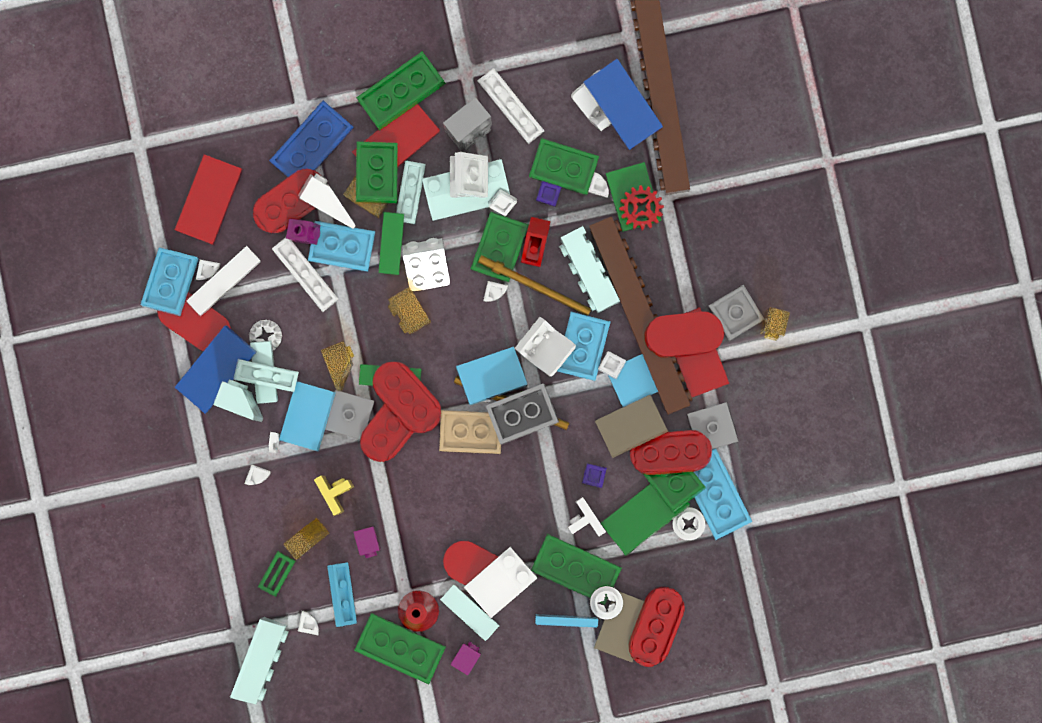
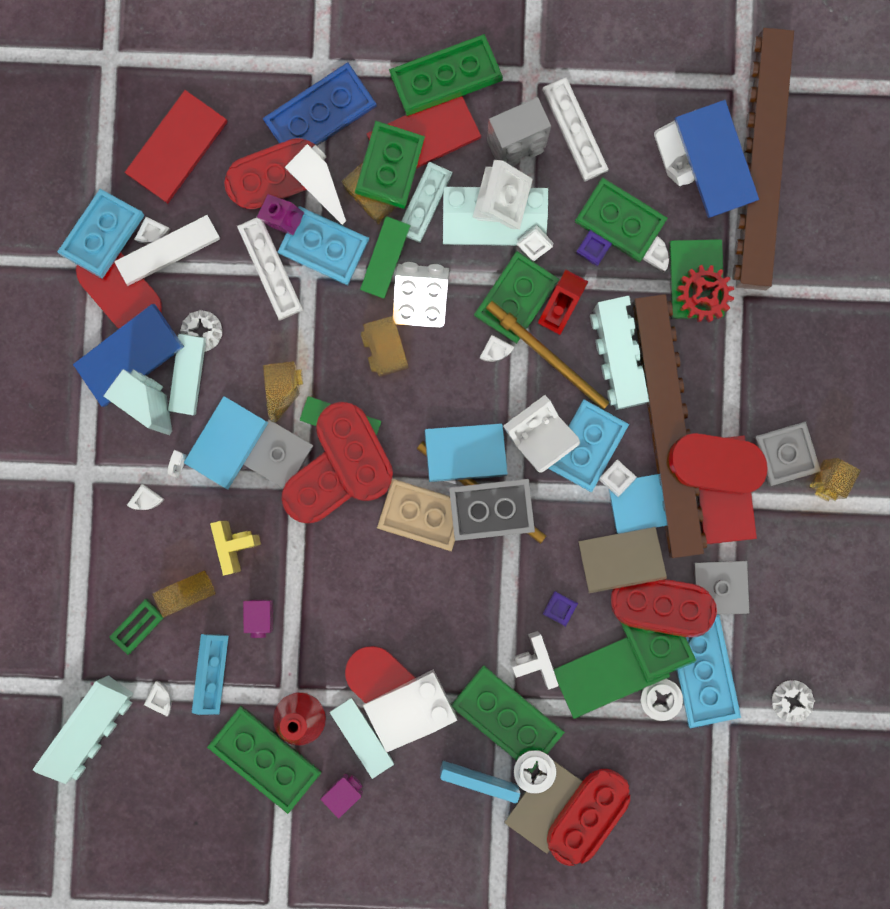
camera: 10 degrees right, 0 degrees up
(266, 375) = (187, 378): light aqua tile -> none
(797, 494) = (790, 689): none -> white gear

